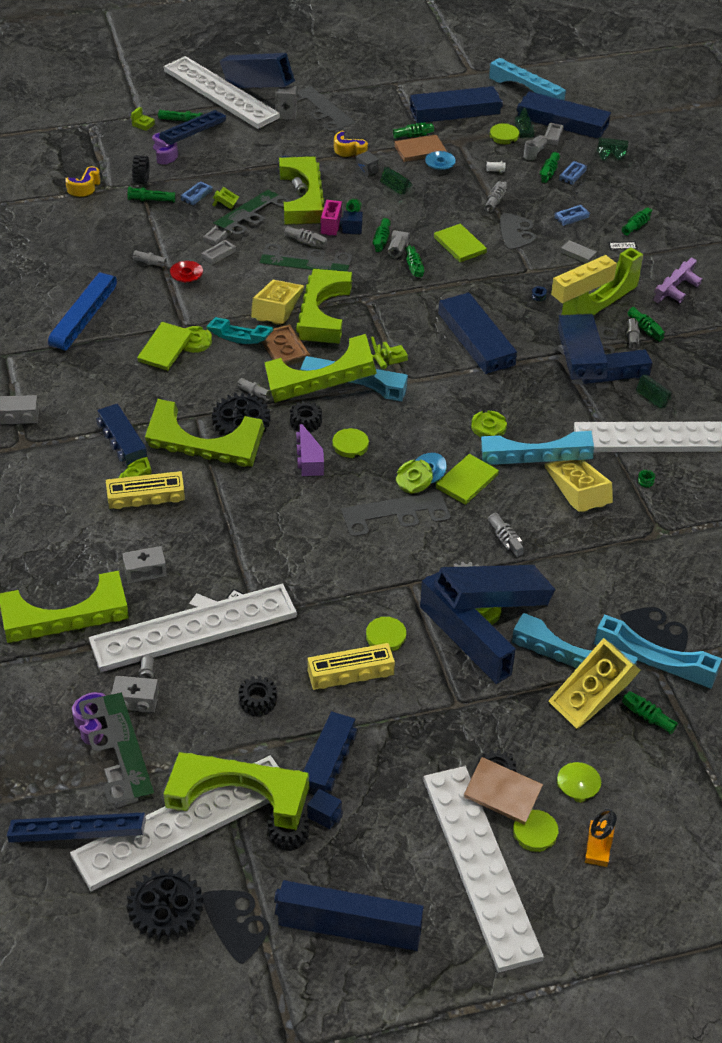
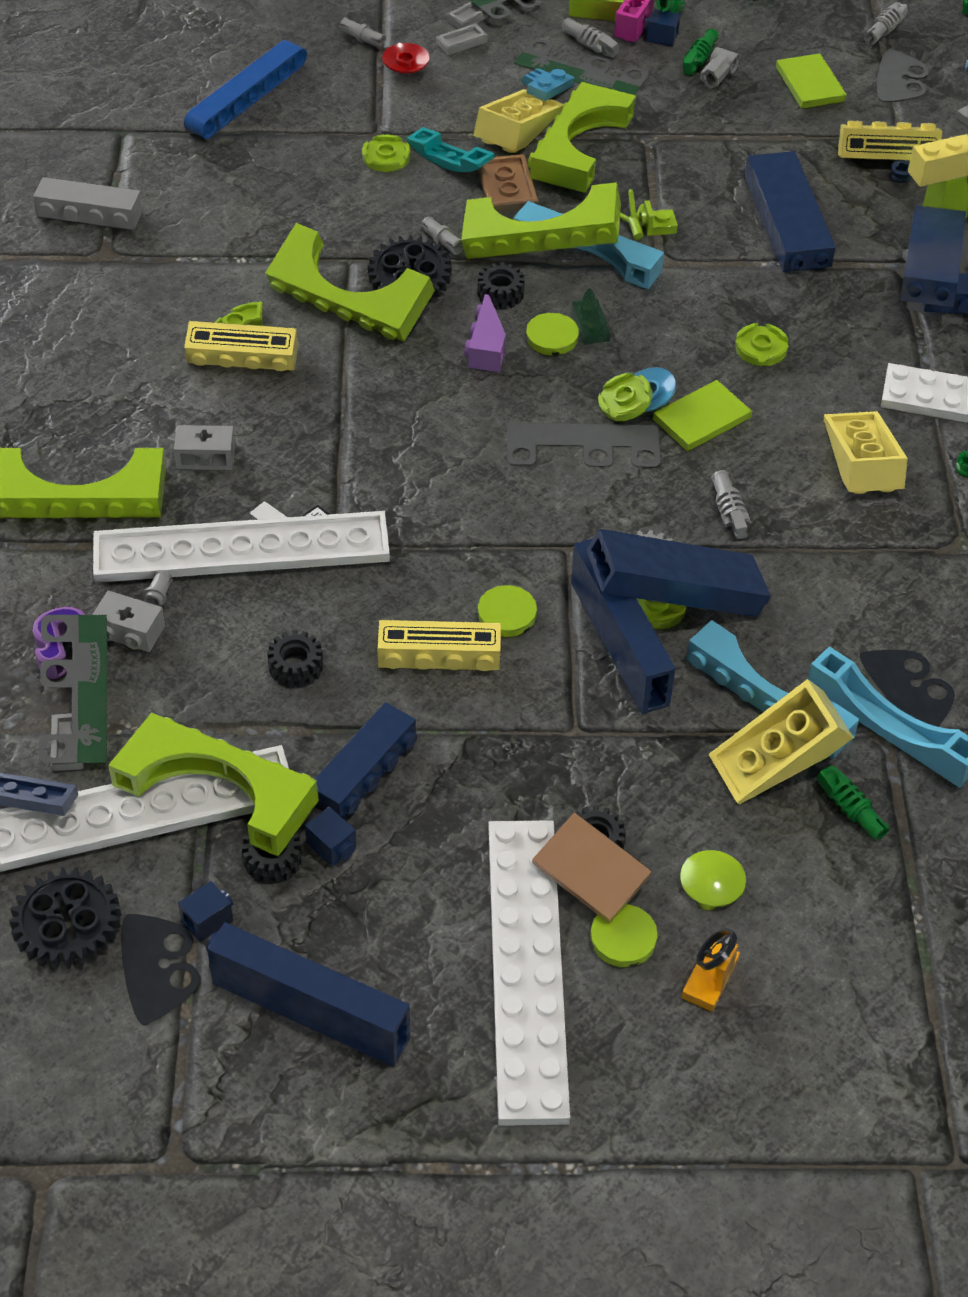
camera: 15 degrees right, 5 degrees up
(121, 434) = (236, 264): dark blue brick -> none
(165, 346) = (340, 154): lime tile -> none
(259, 877) = (206, 910): none -> dark blue brick
(287, 274) = (545, 84): none -> dark azure hinge
(372, 428) = (590, 319): none -> clear green tile
(414, 261) = (733, 96): green hinge -> none
(525, 276) = (884, 141): none -> light yellow brick
(571, 447) = (871, 397): medium azure arch -> none

